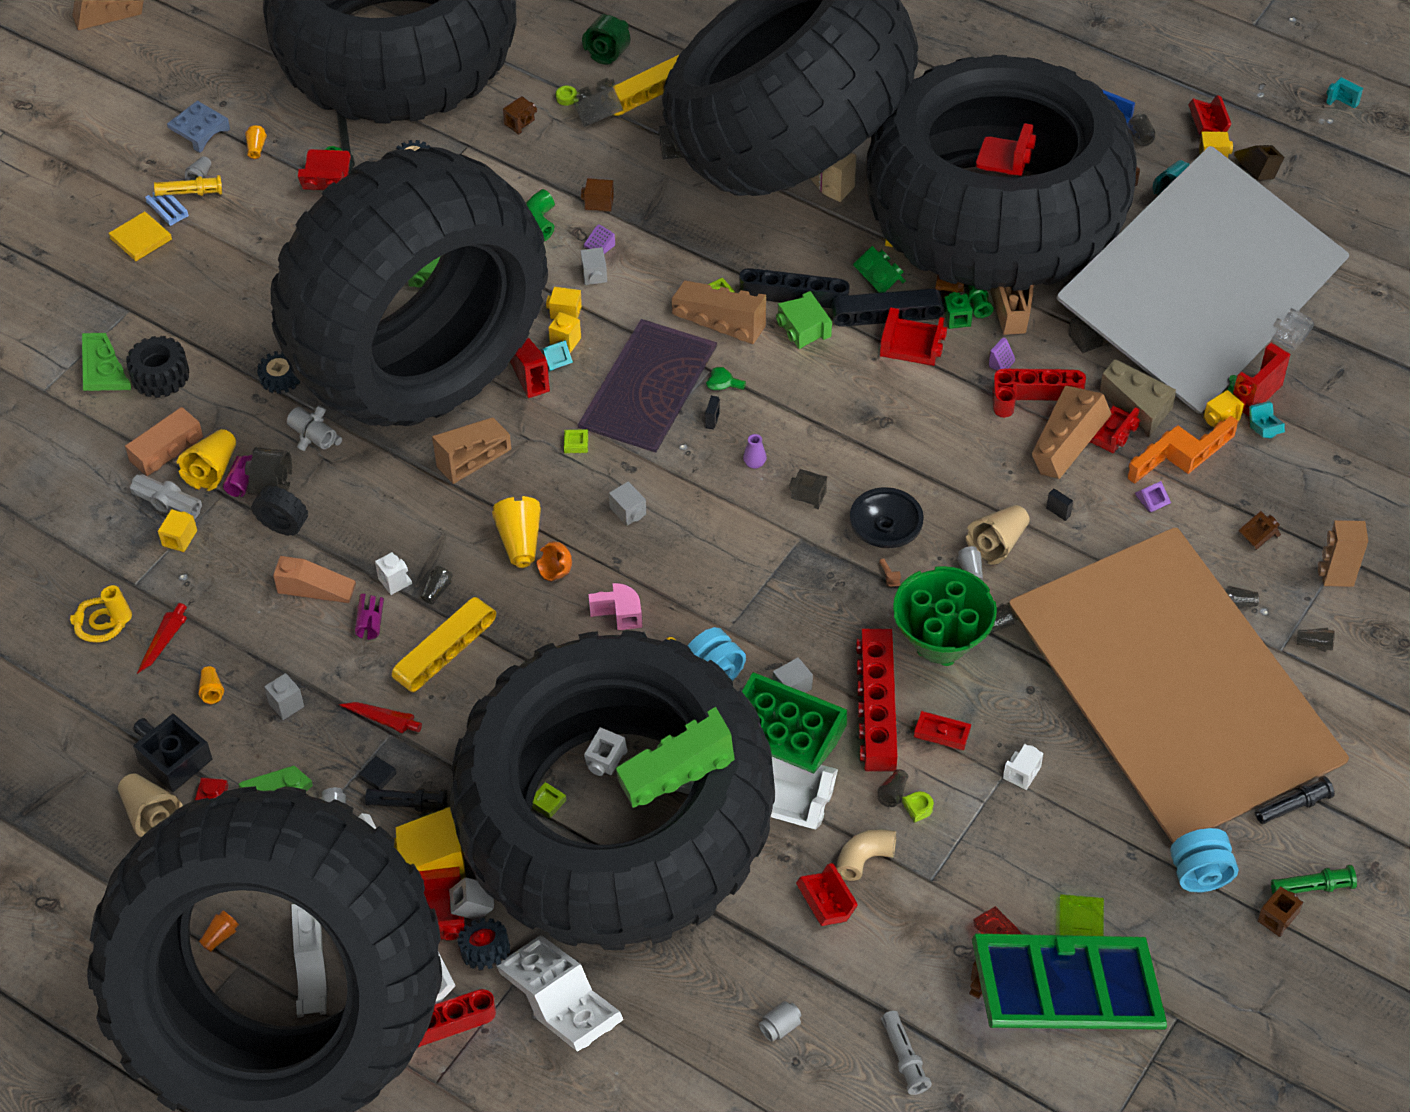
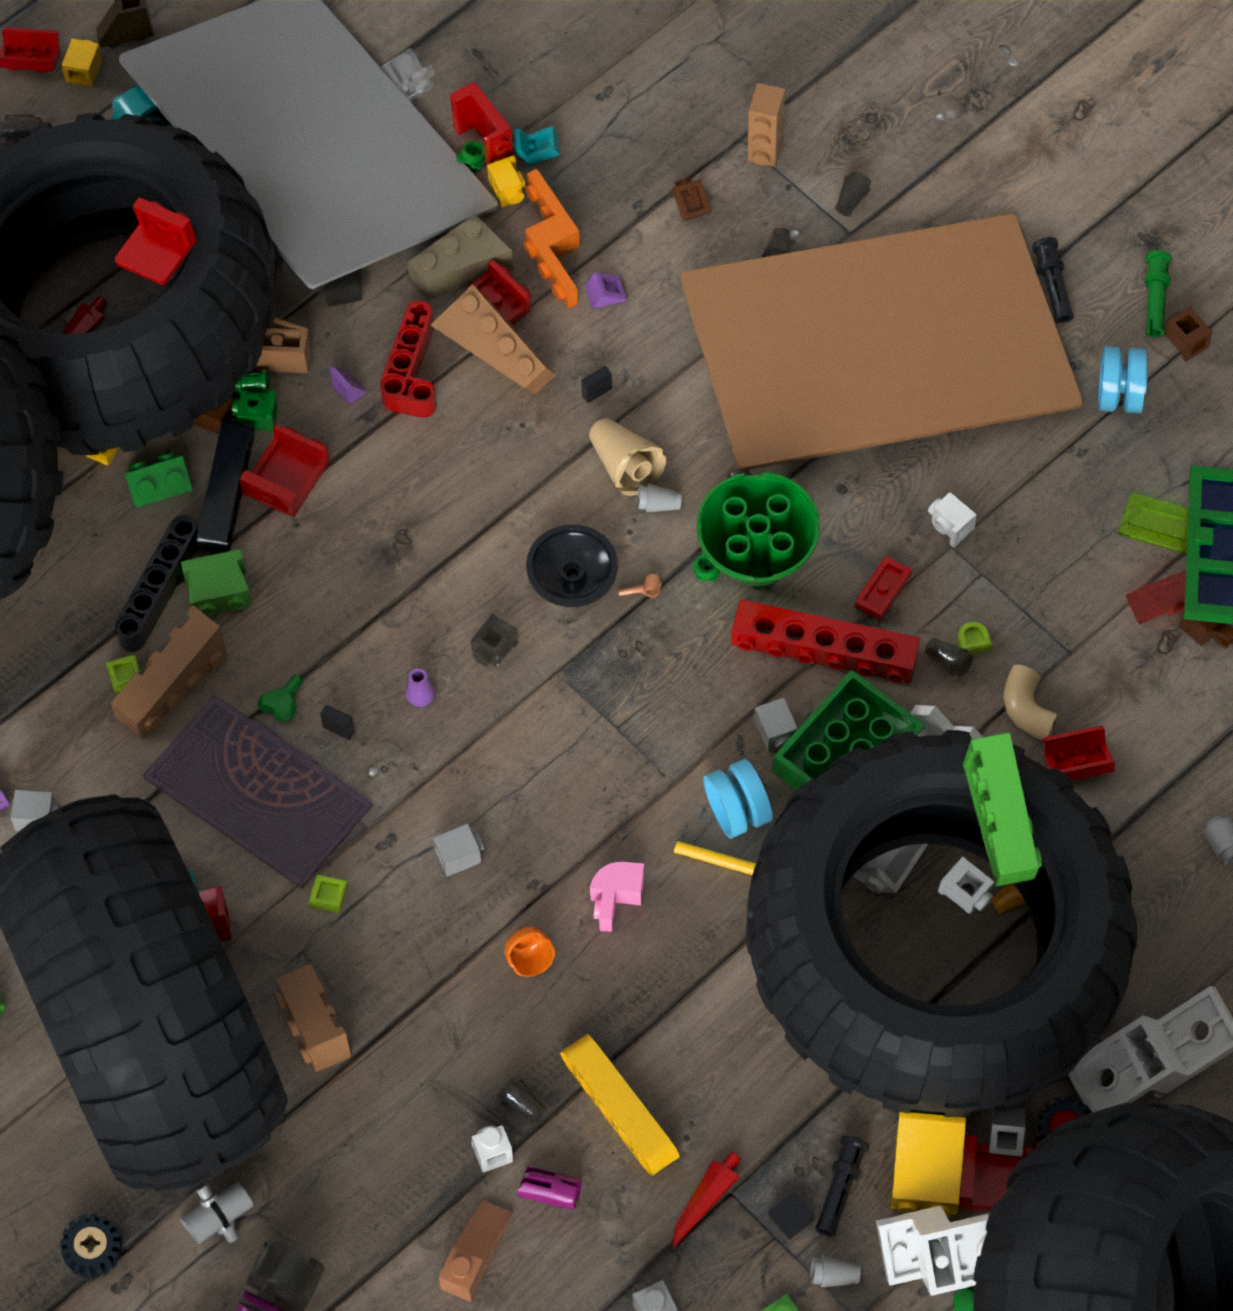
camera: 75 degrees left, 10 degrees up
(279, 510) = (358, 1269): black tyre -> none
(518, 528) = (471, 982): yellow cone -> none

